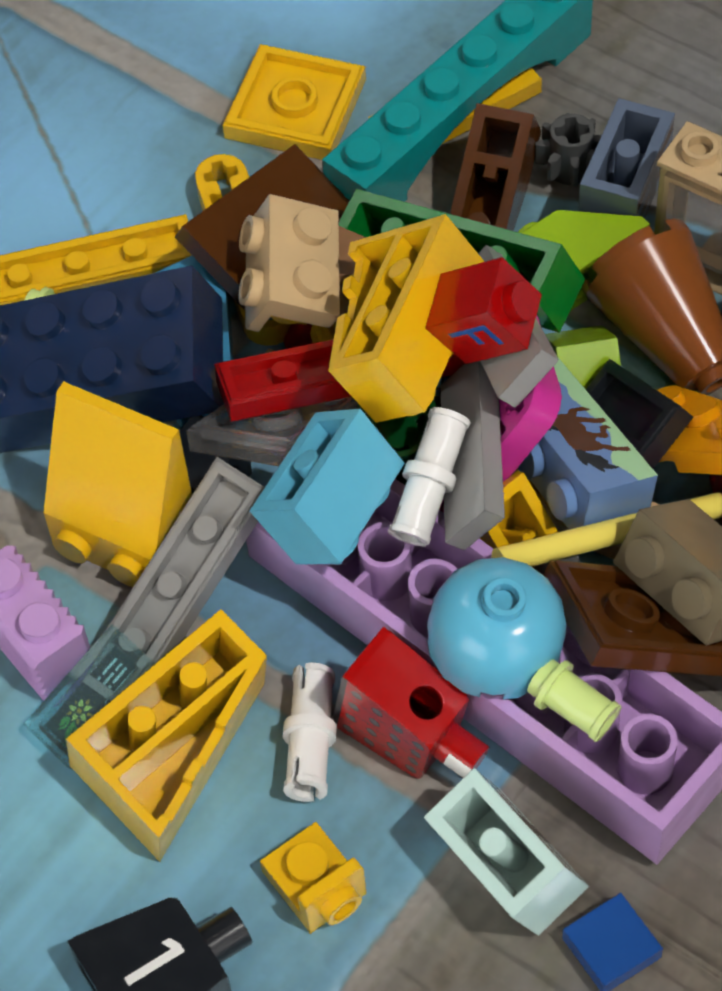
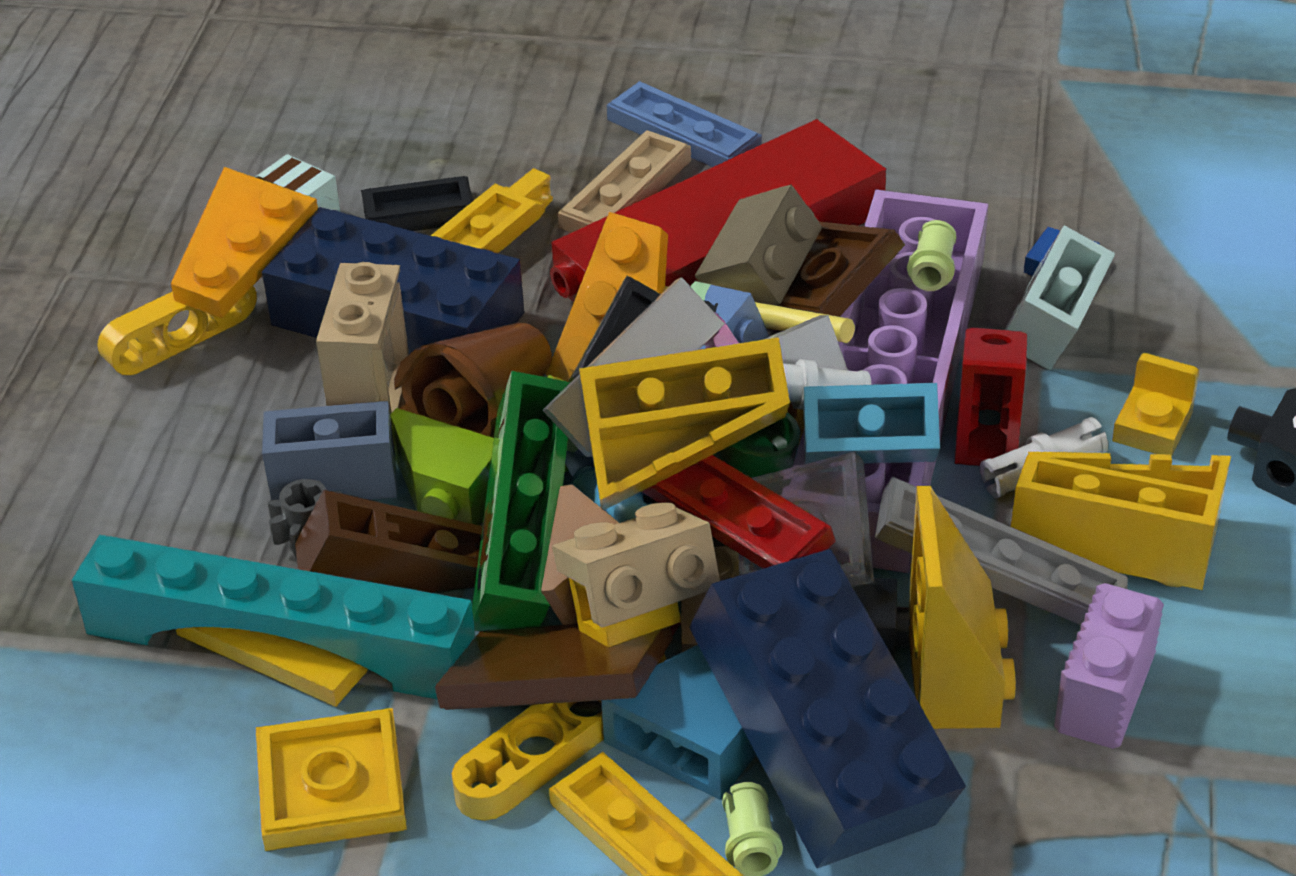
camera: 120 degrees left, 15 degrees down
(91, 684) = (1102, 564): clear light blue tile -> none
(483, 311) = (659, 317): red brick -> none
(495, 627) = (910, 301): medium azure cylinder -> none

